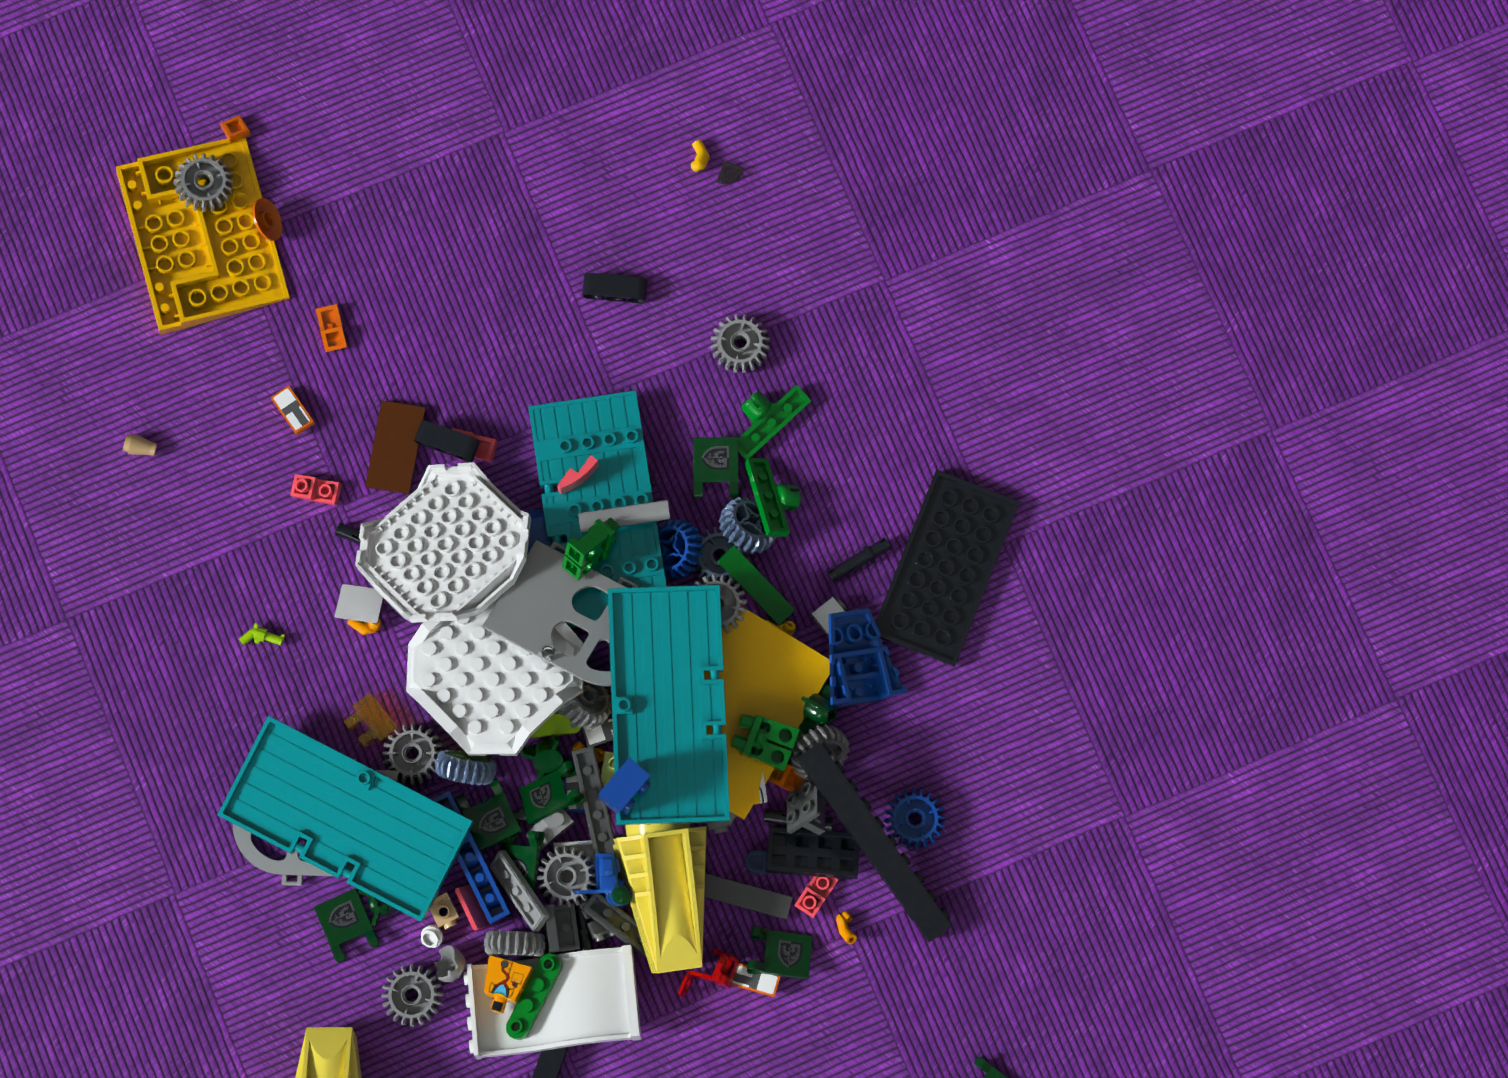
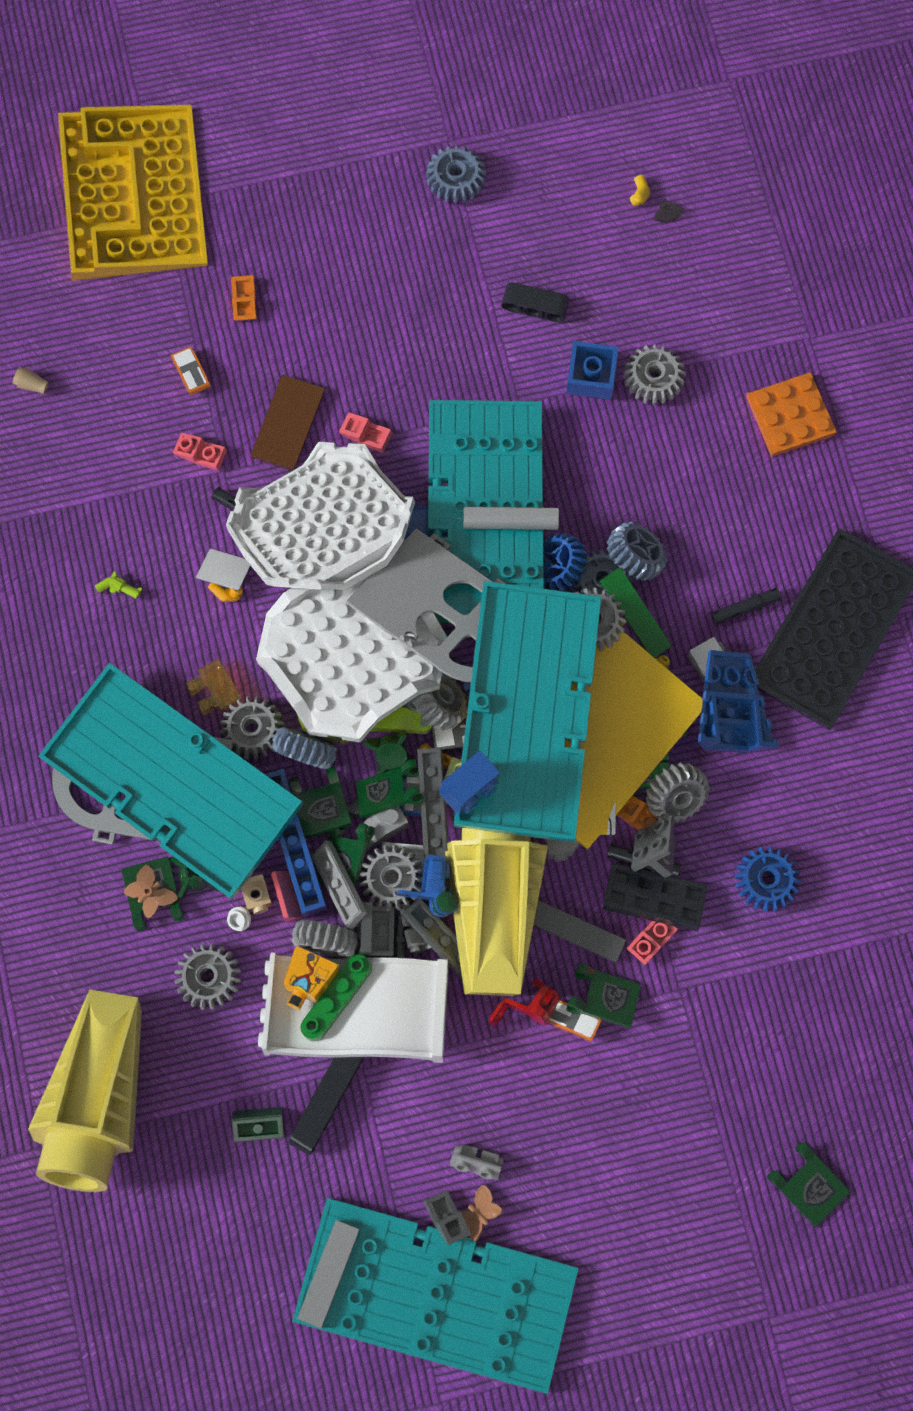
camera: 10 degrees right, 5 degrees down
(199, 195) = (145, 126): light grey gear -> none
(235, 129) = (182, 97): orange tile -> none
(267, 219) = (198, 184): orange dish -> none
(343, 926) = (147, 893): none -> nougat piece
(447, 441) = (341, 421): black beam -> none
(450, 965) = (254, 951): light grey hair -> none
(513, 155) = (456, 187): none -> sand blue gear
(573, 479) = (464, 475): coral slope -> none
(588, 551) = (467, 544): green hips -> none
(679, 350) = (592, 370): none -> blue brick
(715, 461) = (612, 485): dark green flag -> none
(756, 861) = (593, 897): dark blue tile -> none
(759, 738) = (624, 769): green hips -> none
(768, 418) = (671, 452): green plate -> none
(771, 497) = (665, 529): green plate -> none
(818, 710) = (683, 747): dark green piece -> none
(844, 930) = (676, 985): light orange arm -> none
(873, 841) = (722, 891): black brick -> none
(876, 361) = (791, 414): none -> orange plate

